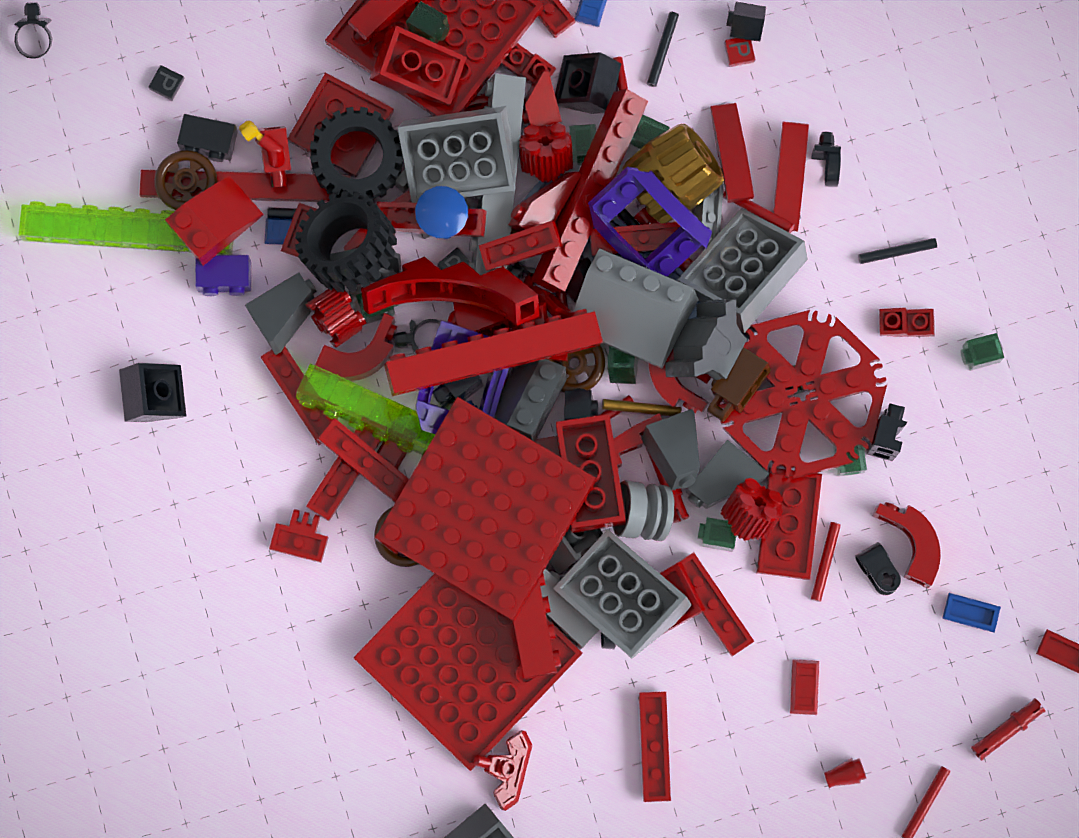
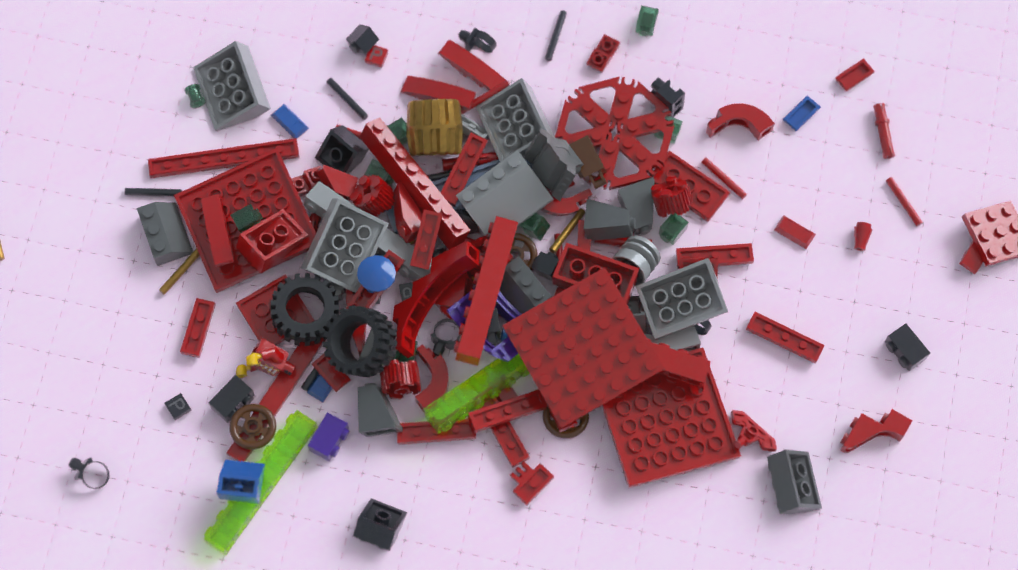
camera: 60 degrees left, 10 degrees down
(107, 204) = (240, 481): none -> blue slope
(213, 219) = (292, 420): red slope -> none
(272, 48) = (198, 327): none -> red plate
(674, 249) = (432, 159): dark purple wedge -> none
(877, 565) = (745, 149): black piece -> none

